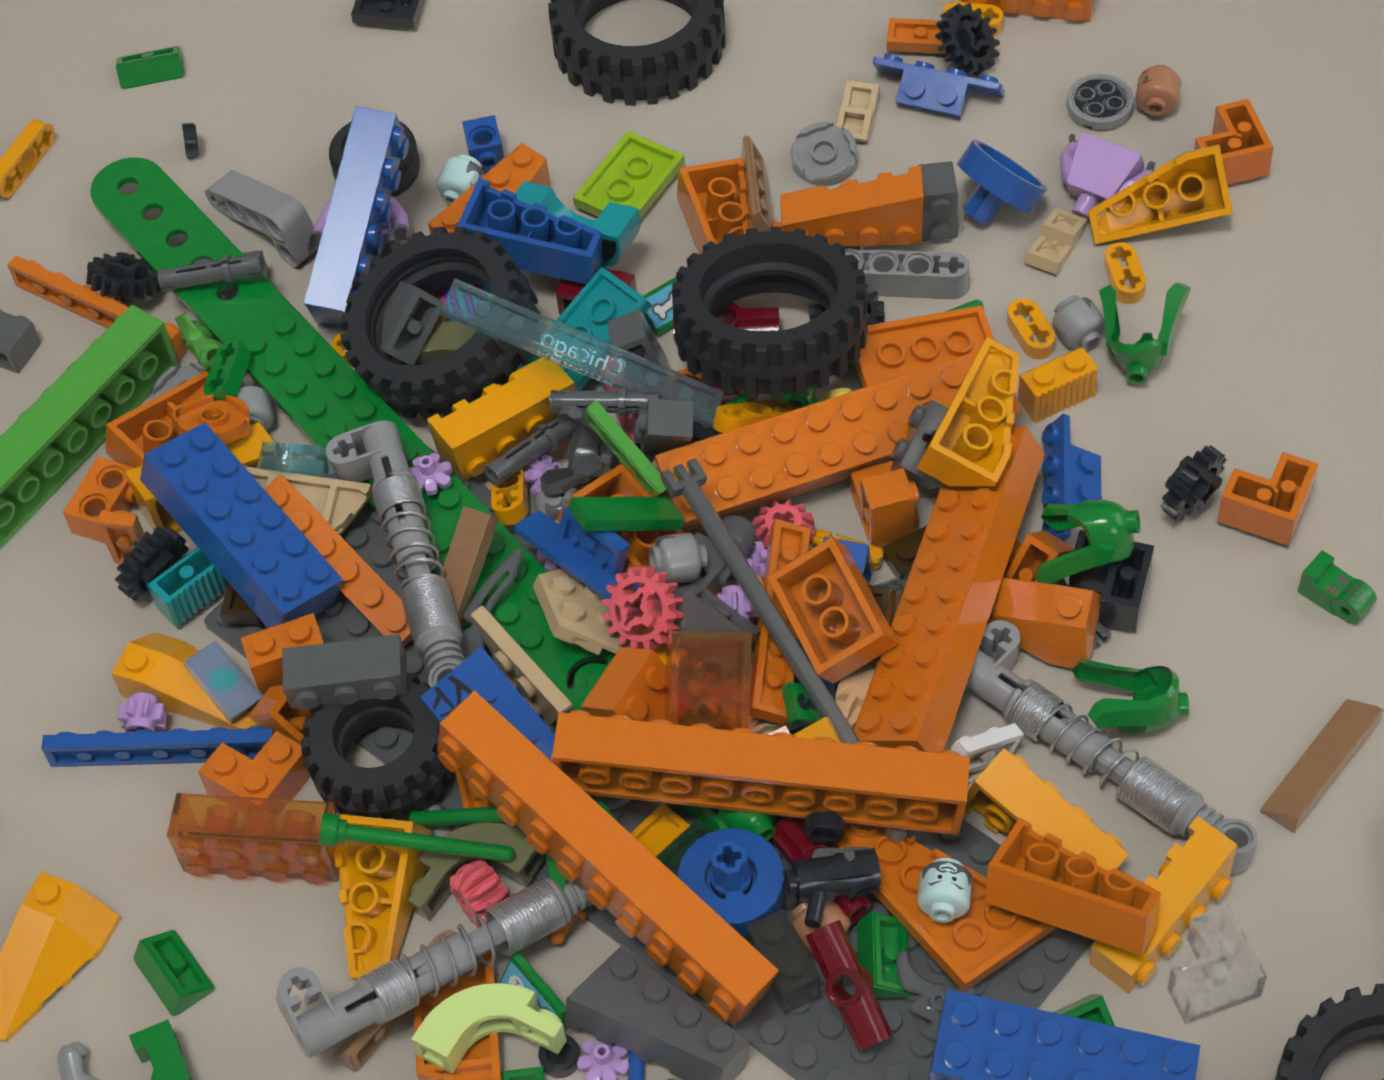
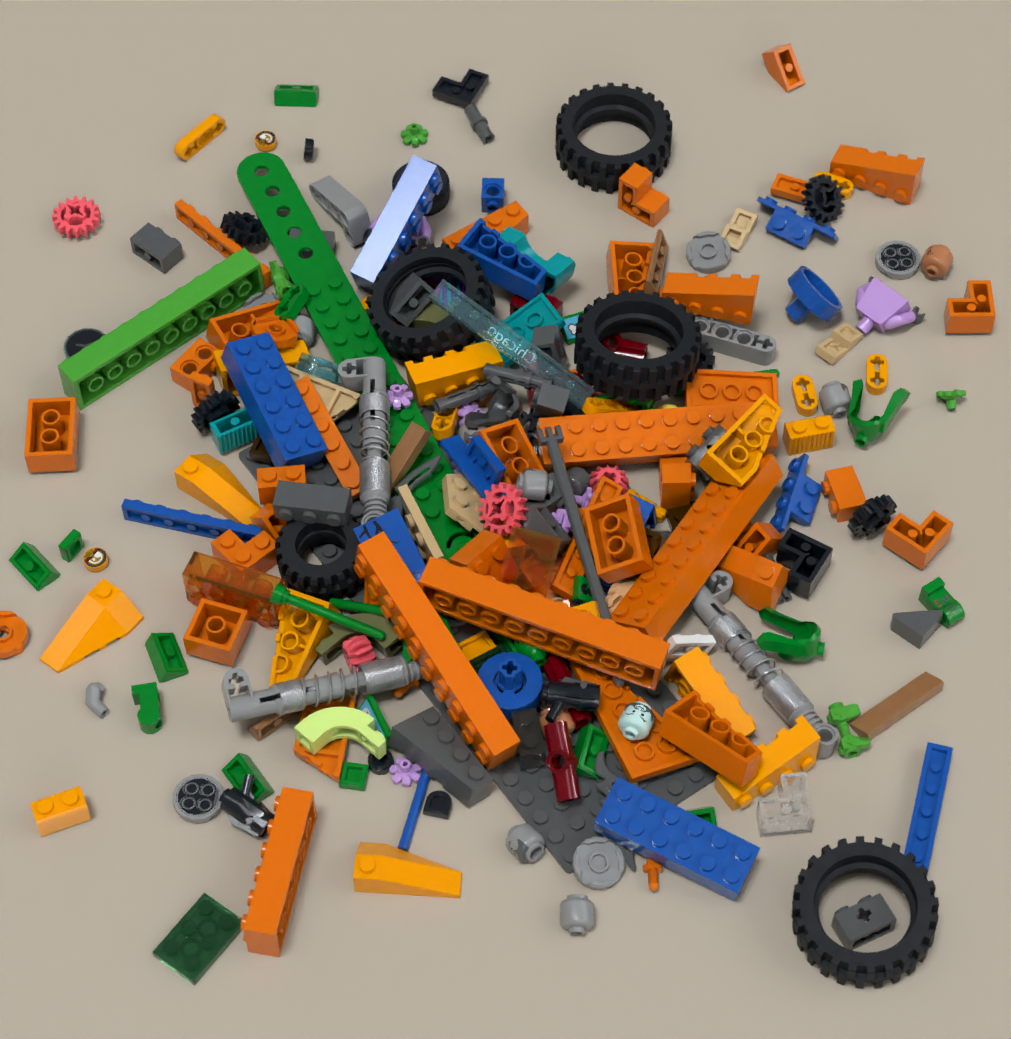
camera: 10 degrees right, 0 degrees up
(20, 842) = (95, 559): none -> tile
(122, 142) = (265, 141): none -> tile
(142, 712) = (187, 499): lavender gear -> none
(222, 681) = (239, 493): sand blue tile -> none
(226, 269) = (306, 238): dark grey pin -> none
(244, 912) = (217, 632): none -> orange brick
(342, 83) = (414, 134): none -> bright green plant
(433, 46) = (479, 124): none -> dark grey pin
(457, 176) = (470, 212): light aqua head -> none
(624, 448) = (519, 408): bright green tile -> none
(626, 513) = (510, 449): green tile -> none
(630, 175) = (579, 238): lime plate -> none
(700, 99) = (639, 198): none -> orange brick
(824, 827) = (574, 666): black tile -> none
(939, 202) = (768, 300): dark grey brick -> none
(1107, 529) = (804, 533): green piece -> none
(1137, 459) = (843, 492): none -> orange brick
(1173, 195) = (921, 331): light orange wedge -> none
(1243, 801) = (839, 715): none -> bright green piece
(1244, 280) = (950, 397): none -> bright green plant
(1309, 633) = (916, 626): none -> dark grey slope

